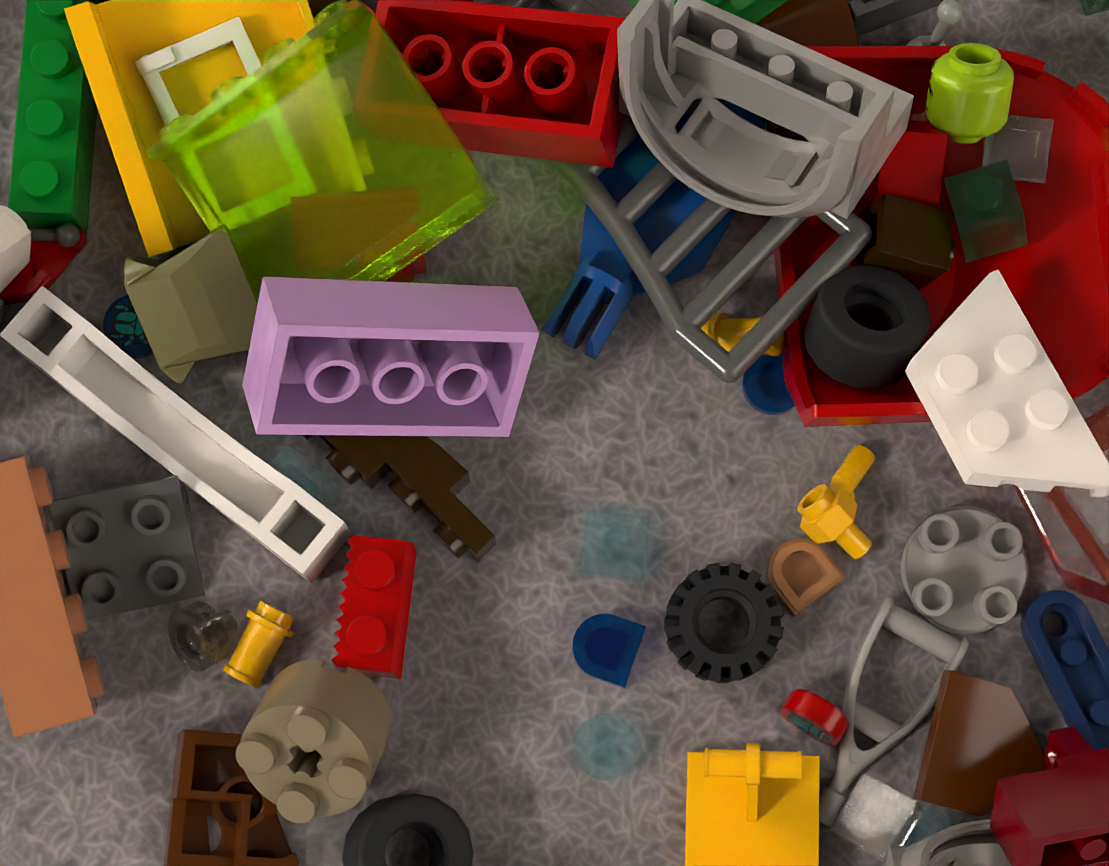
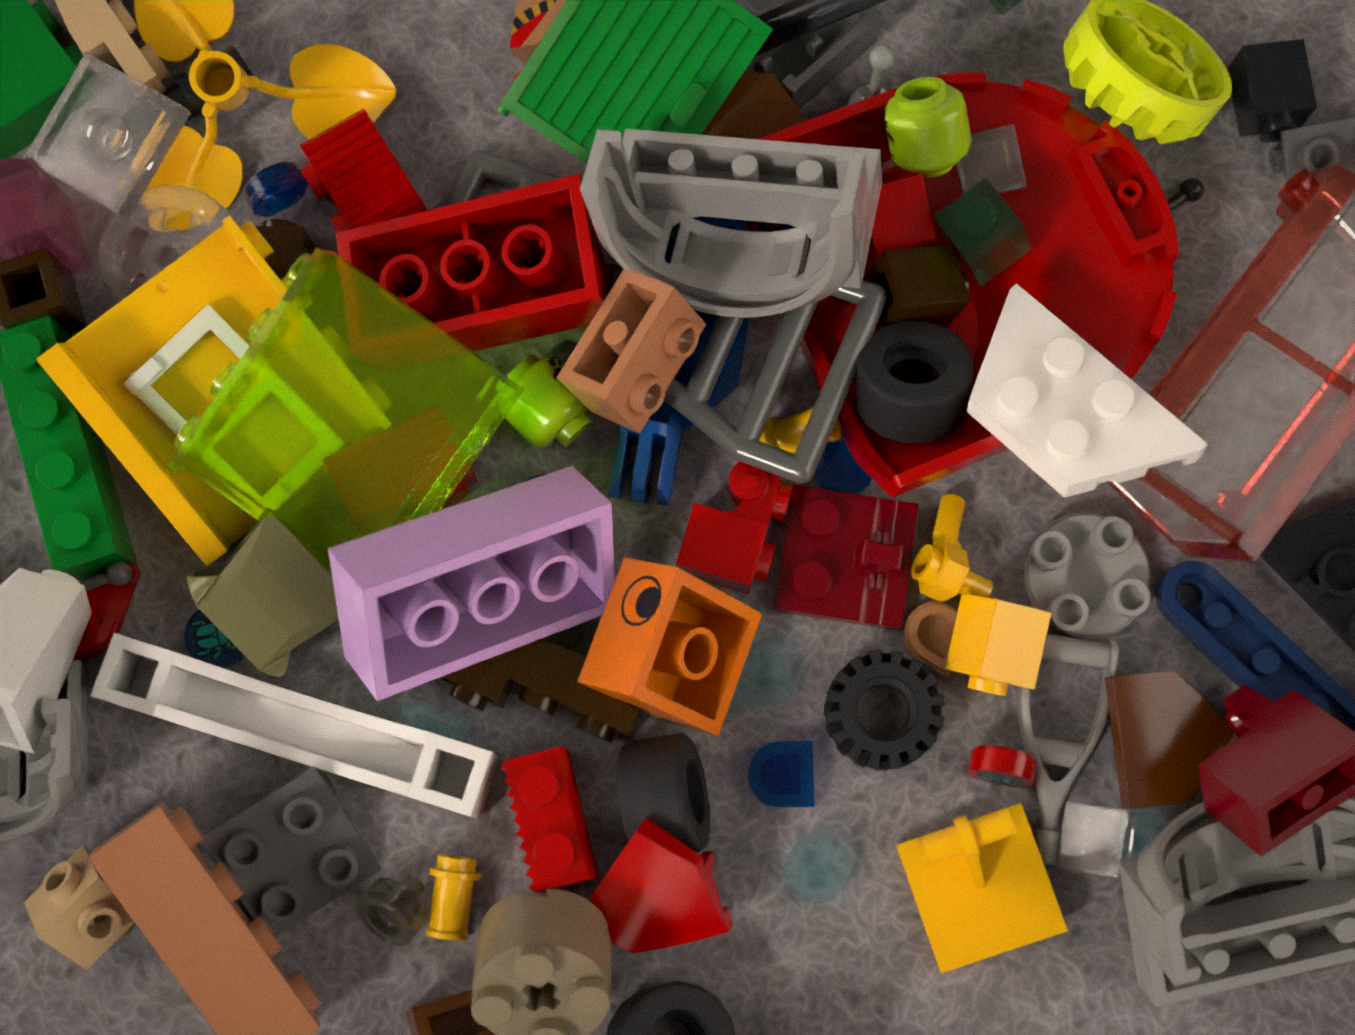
camera: 15 degrees left, 0 degrees up
(450, 711) = (660, 894): none -> red slope
(487, 624) = (667, 785): none -> black tyre
(520, 223) = (546, 406): none -> lime head
(546, 487) = (670, 646): none -> orange brick
(612, 199) = (632, 350): none -> nougat brick
(640, 417) = (731, 545): none -> red brick
(743, 469) = (846, 557): none -> dark red hinge
(853, 600) = (997, 643): none -> yellow brick

